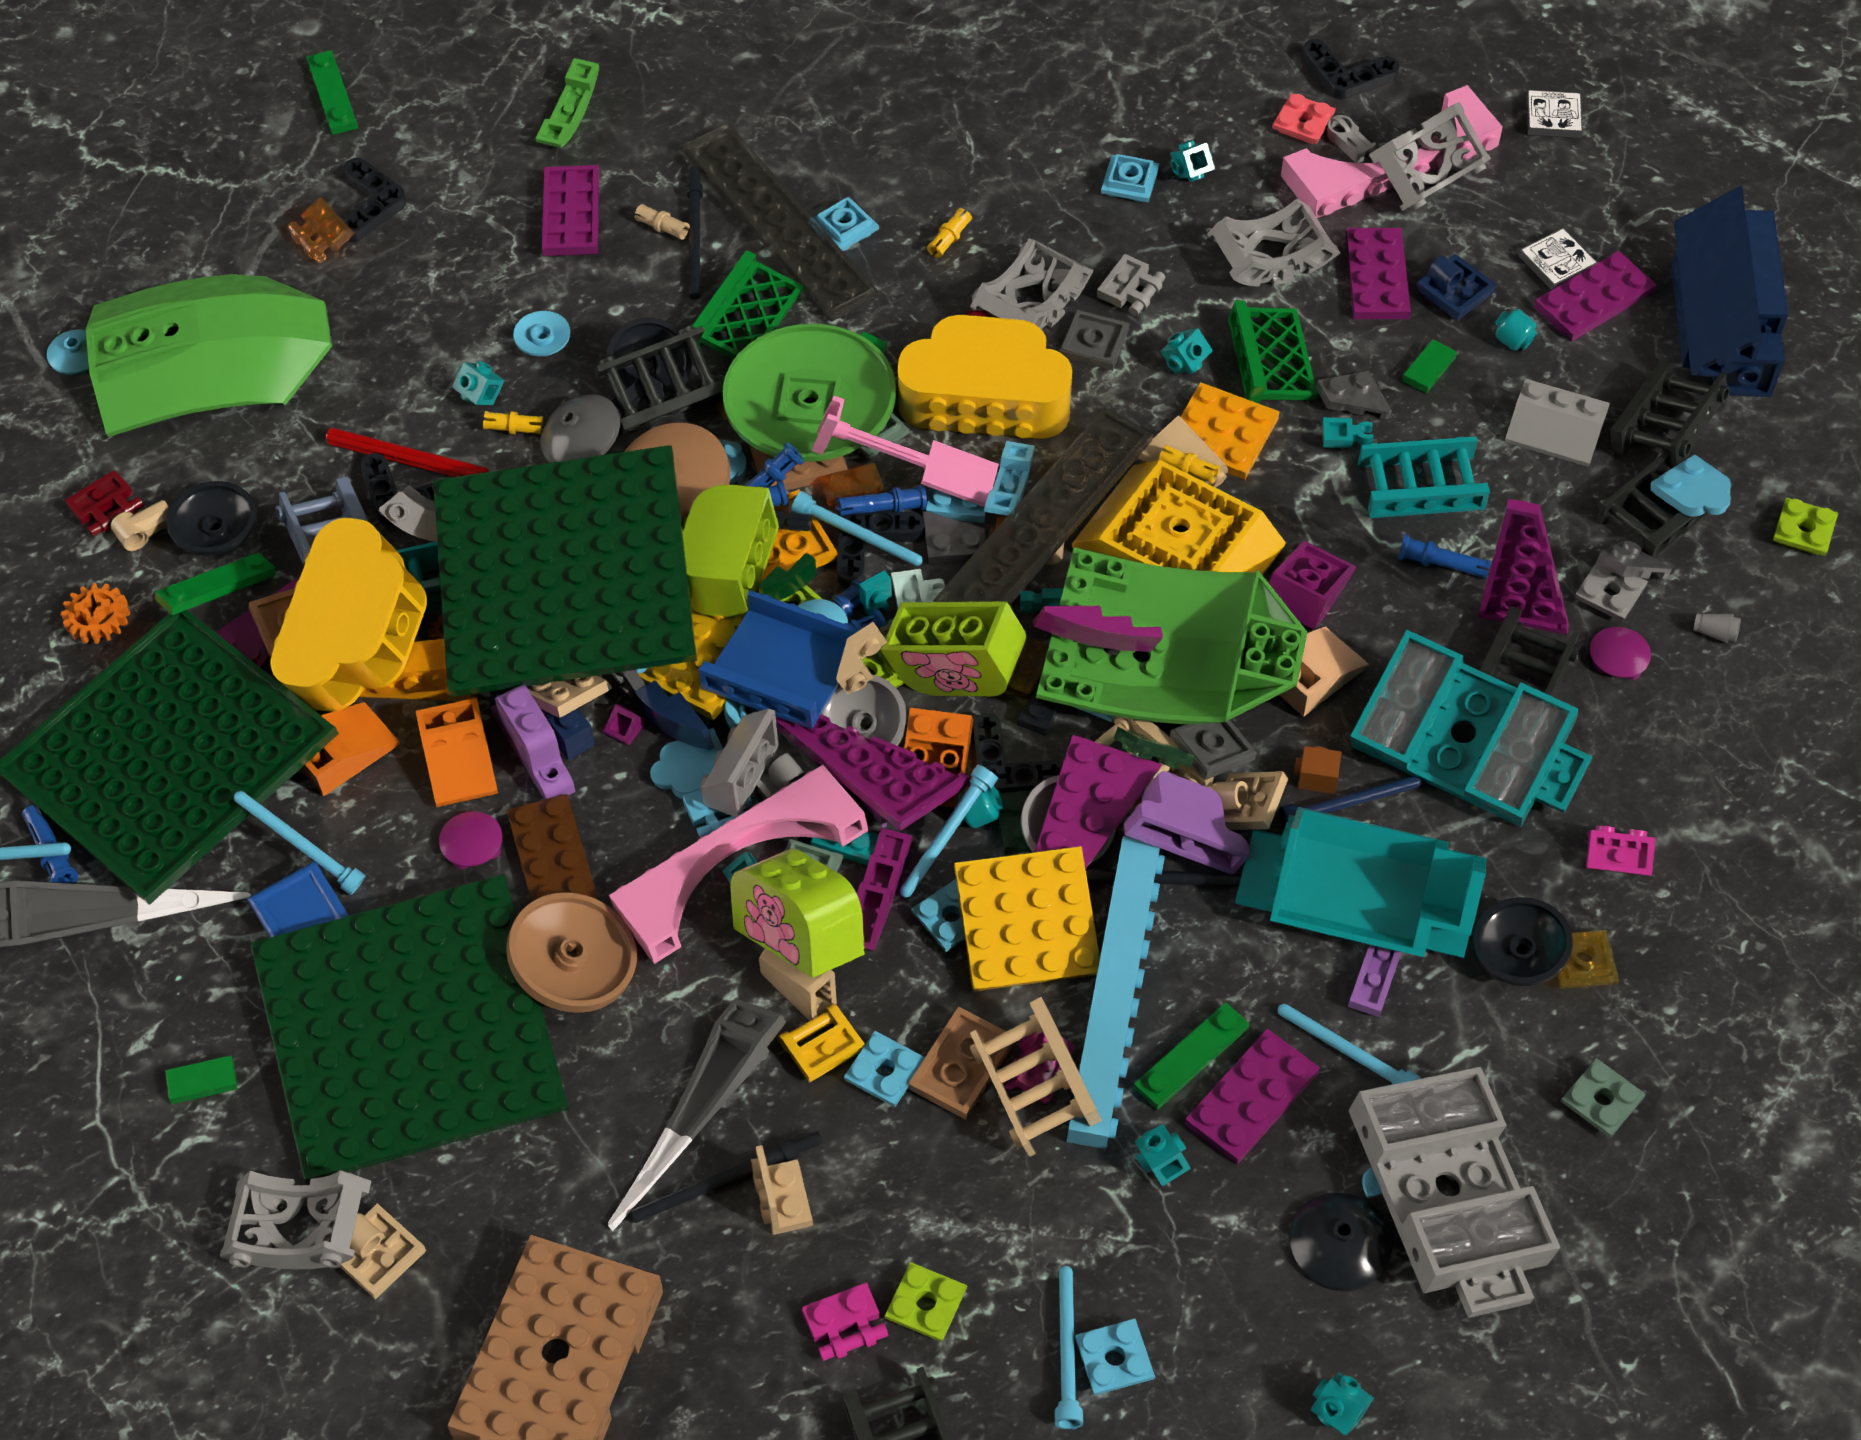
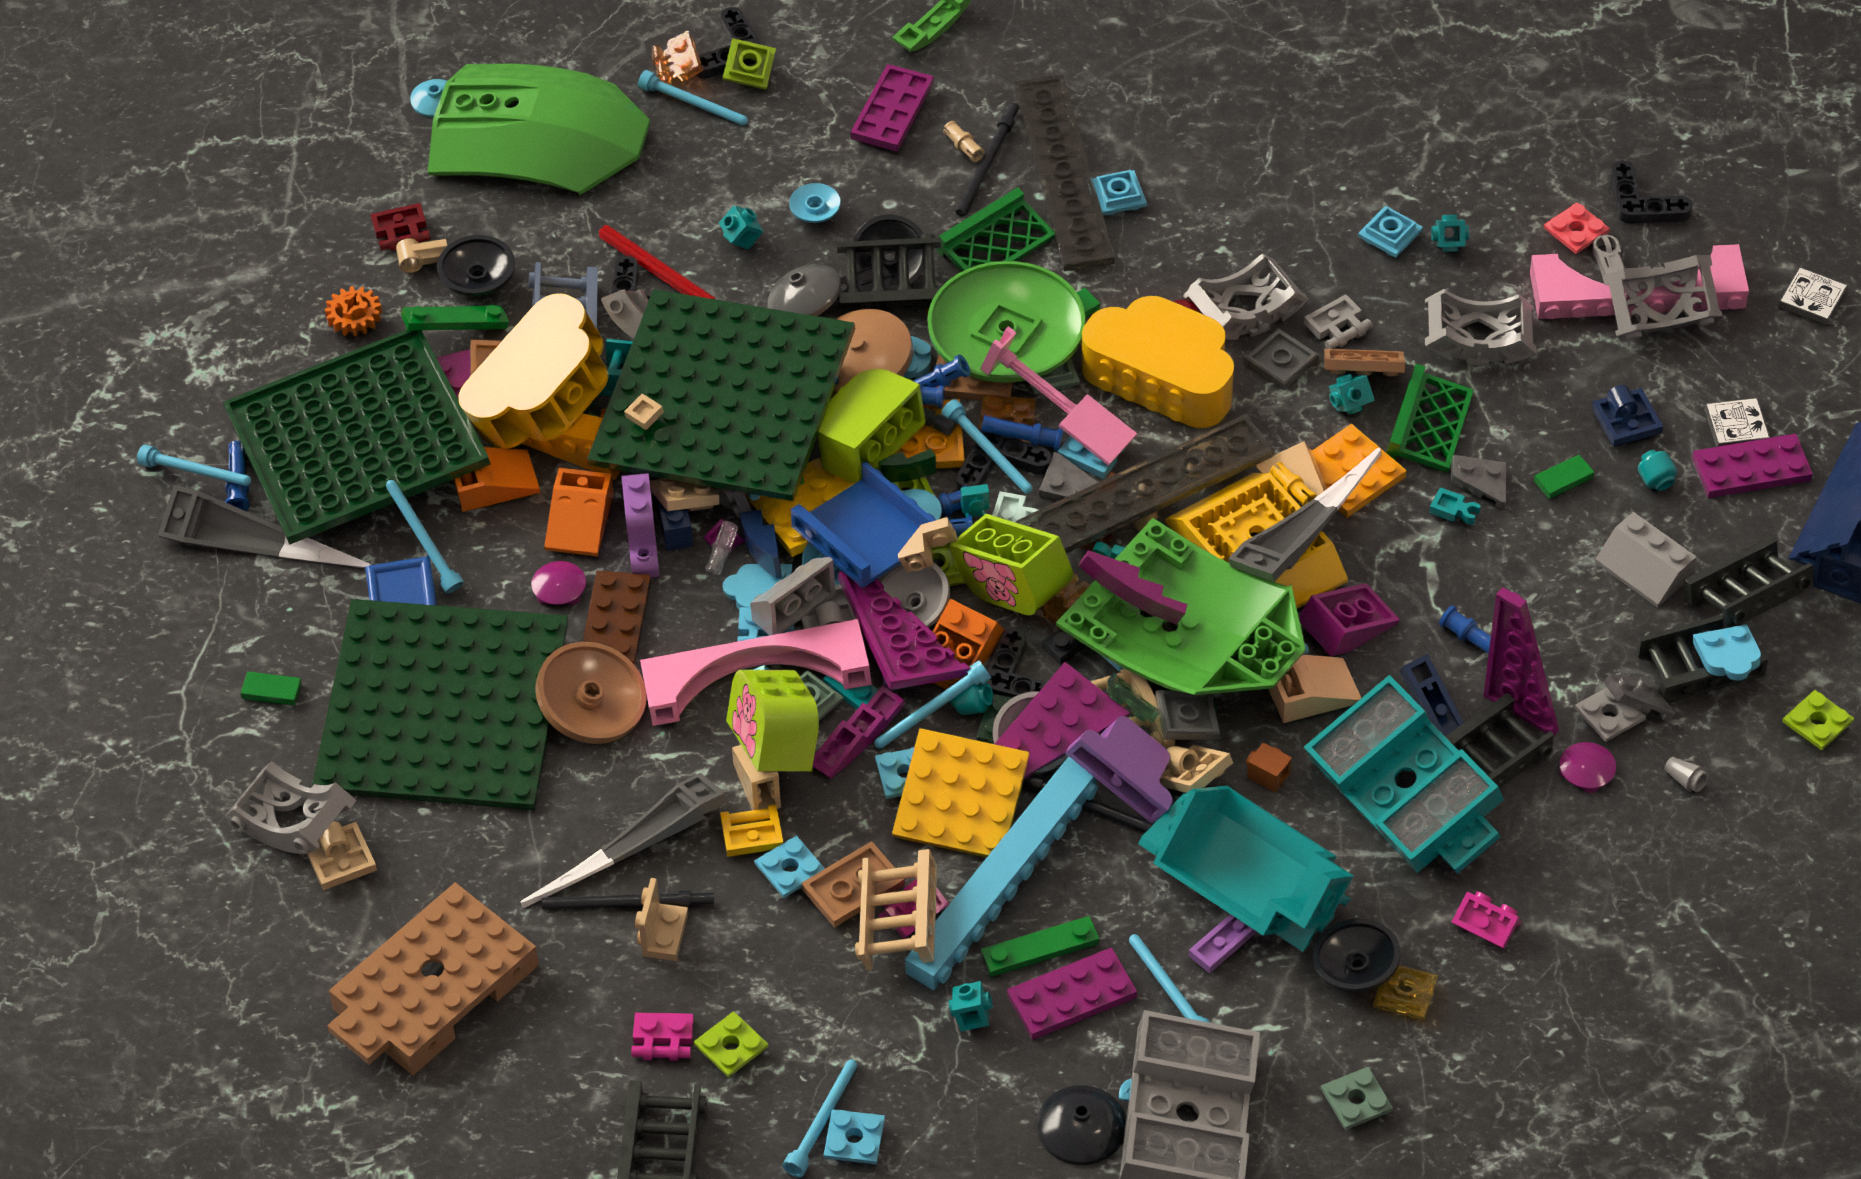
camera: 25 degrees right, 5 degrees down
(302, 262) = (650, 82): none -> medium azure piece
(396, 223) = (755, 75): none -> lime piece
(491, 618) = (644, 411): none -> tan plate
(513, 422) = (755, 268): yellow pin -> none
(631, 737) = (721, 548): none -> clear axle
(949, 233) = (1204, 228): yellow pin -> none
(1011, 478) = (1153, 441): medium azure slope -> none
(1182, 315) = (1364, 361): none -> medium nougat plate
(1219, 529) = (1286, 541): none -> dark grey plate
(1354, 798) = (1297, 802): dark blue piece -> none
(1377, 273) = (1565, 383): magenta plate -> none
(1424, 500) = (1487, 584): teal fence -> none
(1425, 620) = (1431, 694): none -> dark blue slope

